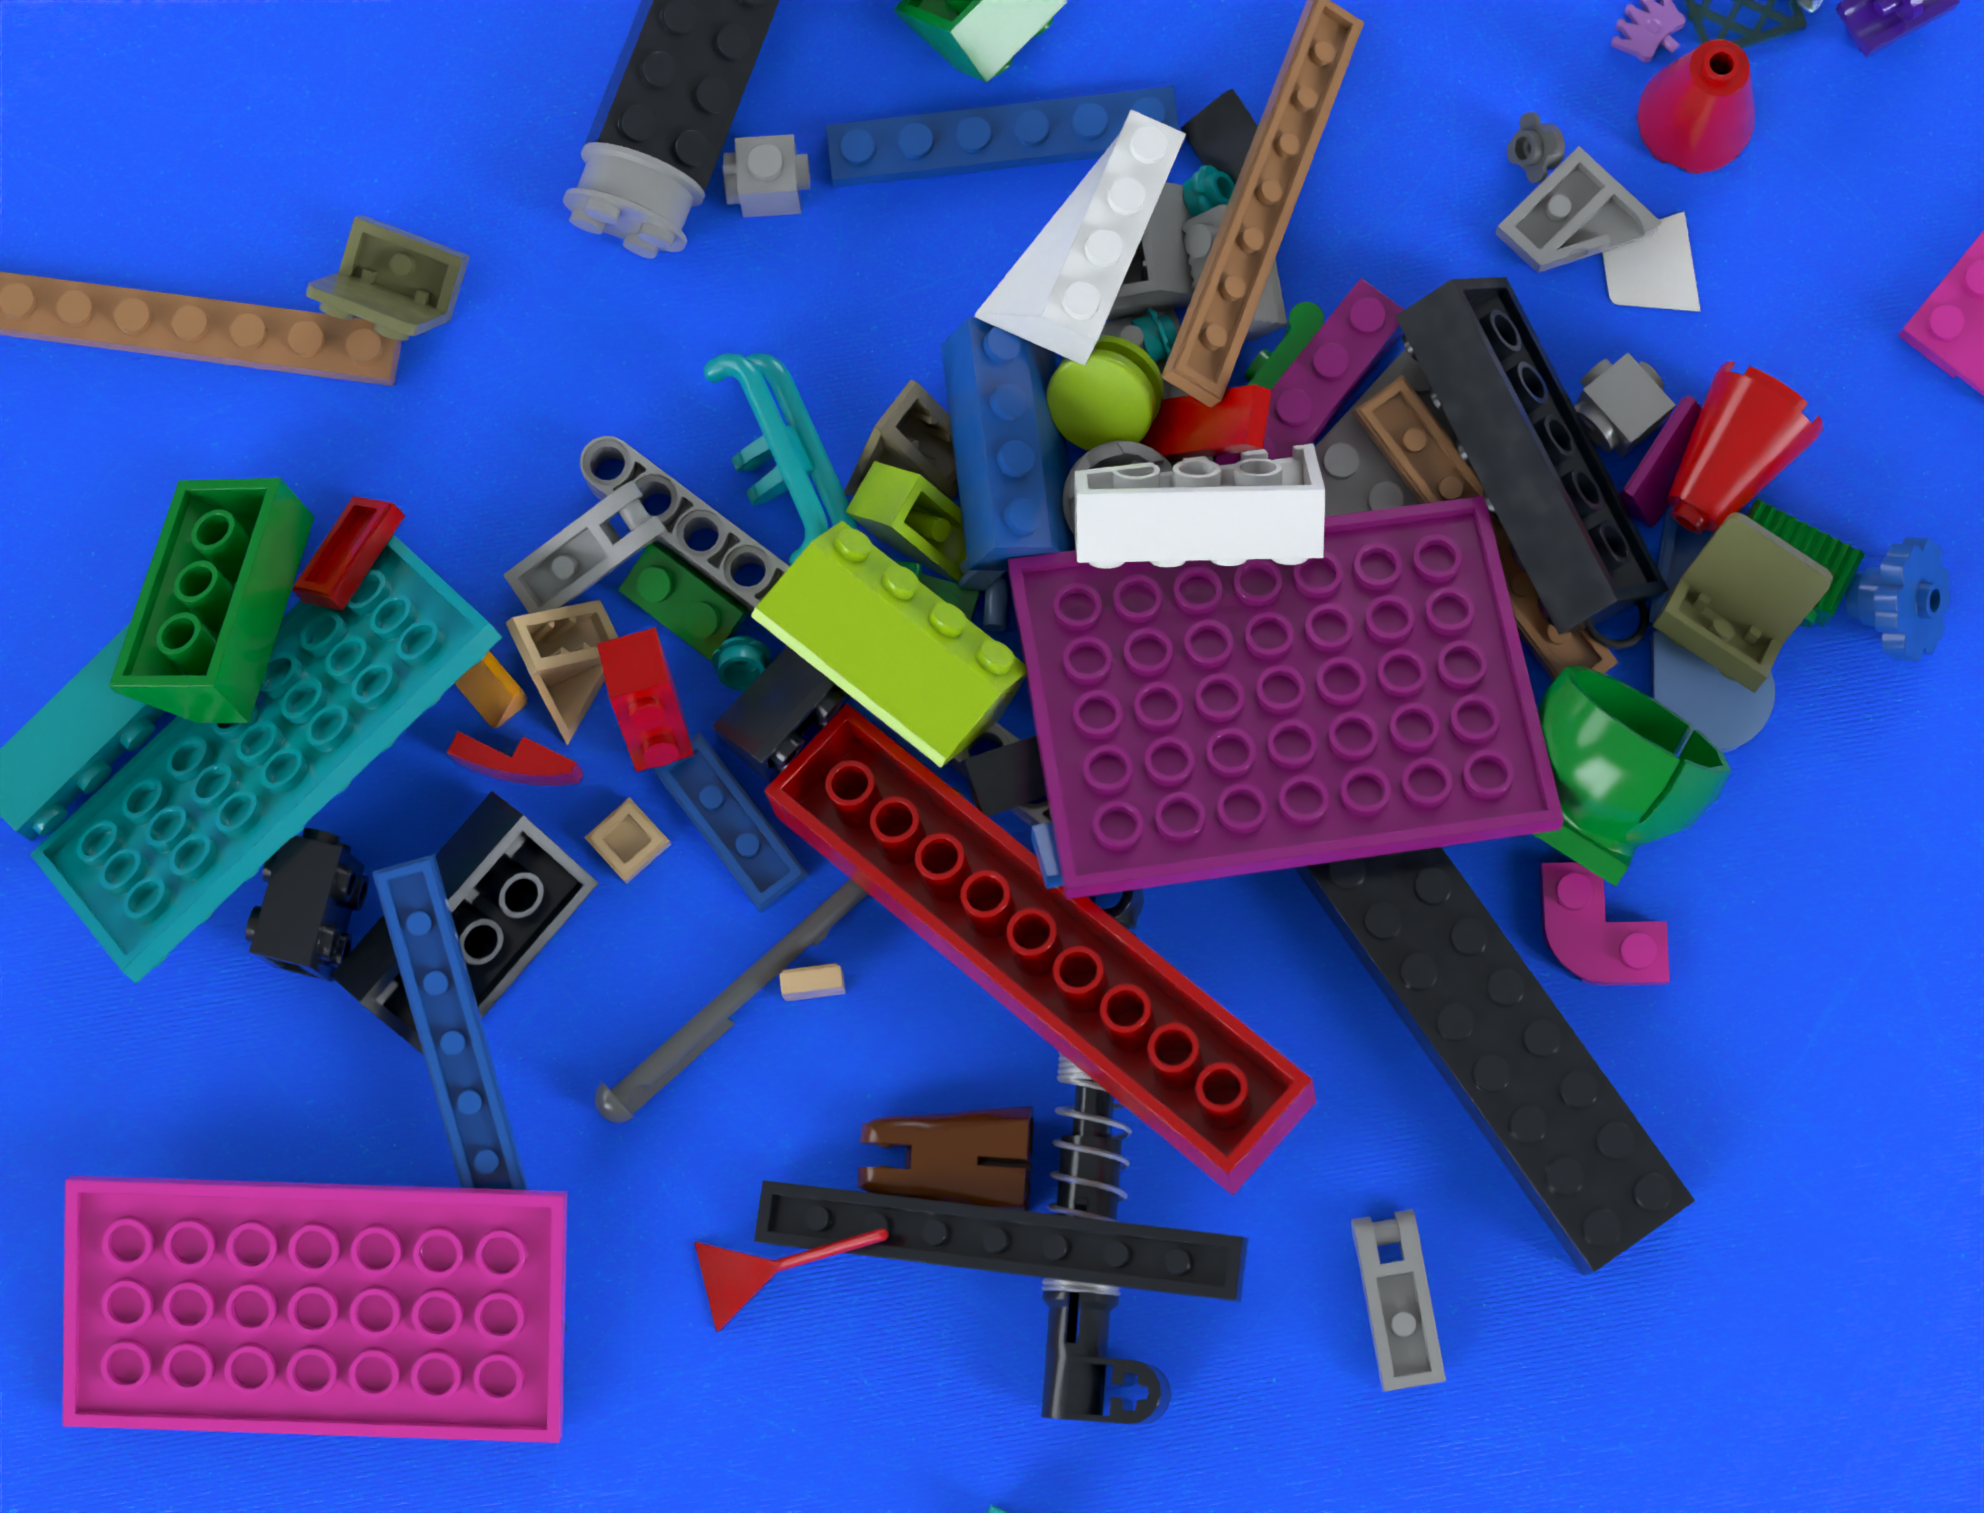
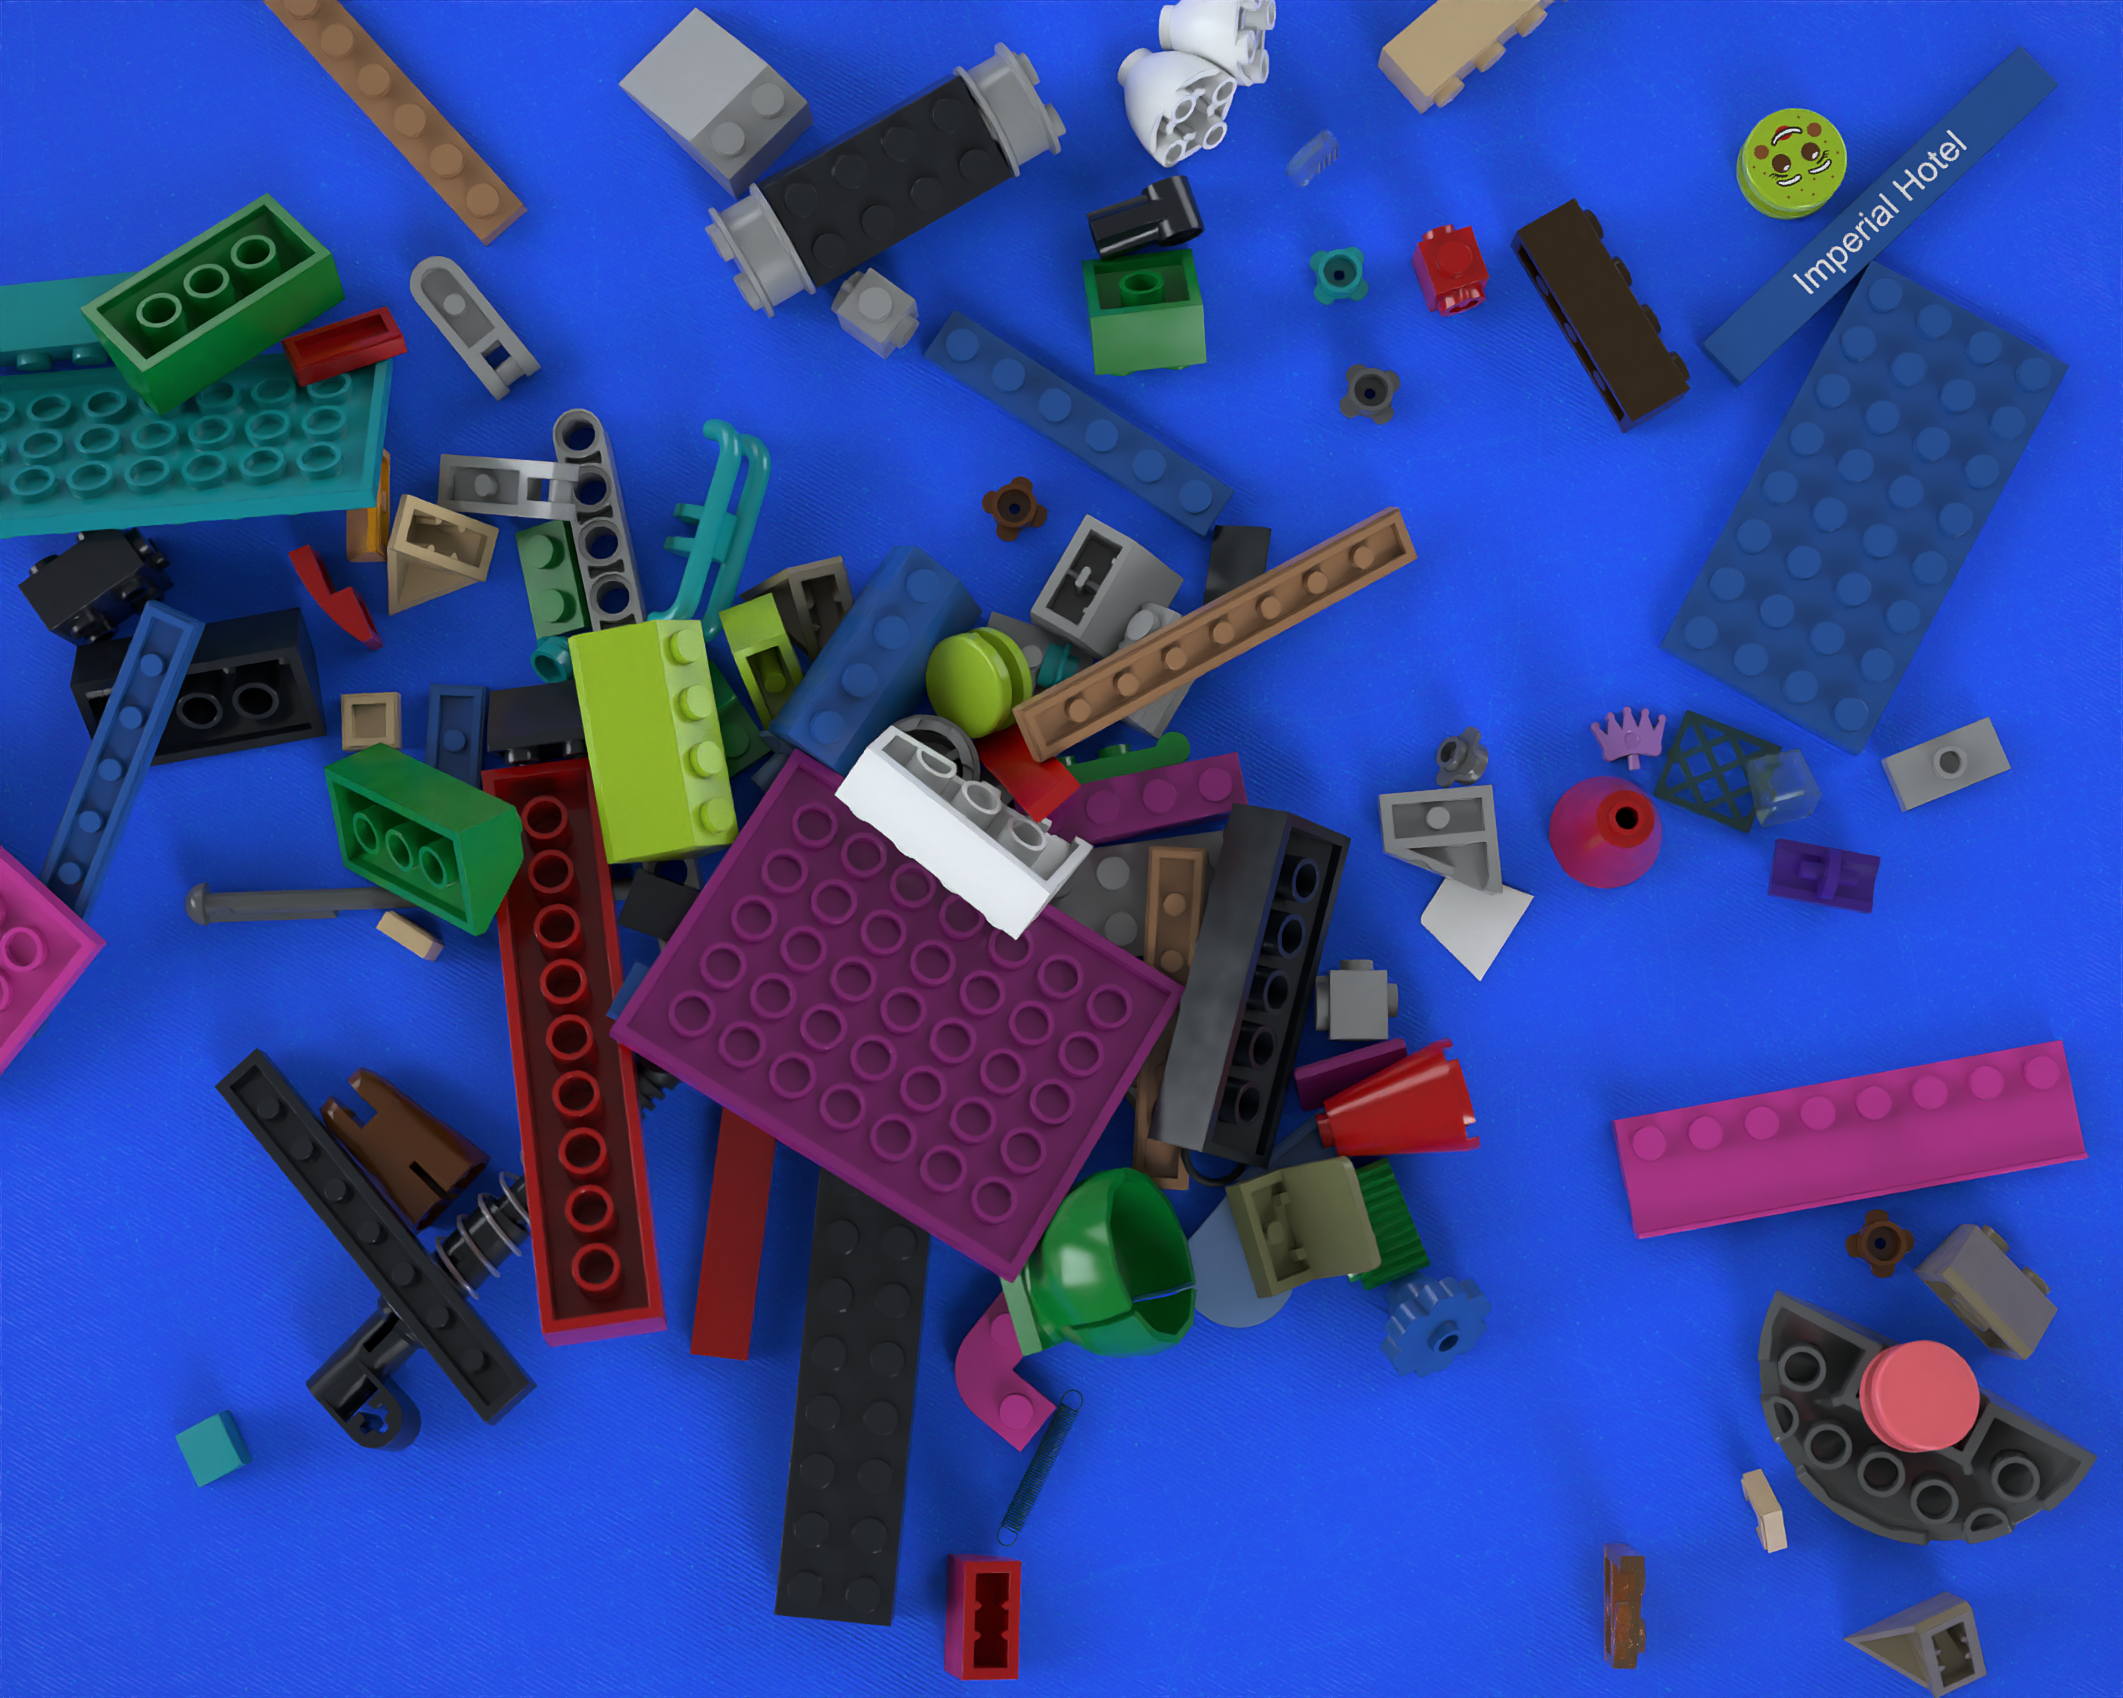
camera: 40 degrees right, 5 degrees up
(392, 280) = (537, 171): olive bracket -> none
(437, 453) = (470, 323): none -> light grey plate
(490, 115) = (718, 101): none -> light grey slope
(645, 699) = (456, 633): red brick -> none
(737, 1277) = (185, 1101): red piece -> none
(764, 878) = (425, 835): none -> green slope
(1004, 227) = (1017, 493): none -> reddish brown plate
(1077, 263) = (1033, 568): white wedge -> none
(1207, 190) = (1186, 591): teal plate -> none
(1281, 995) = (734, 1239): none -> red tile
(1398, 1303) = (627, 1515): light grey plate -> none
(1703, 980) = (1030, 1466): none -> piece
(1756, 1139) = (982, 1617): none -> red brick

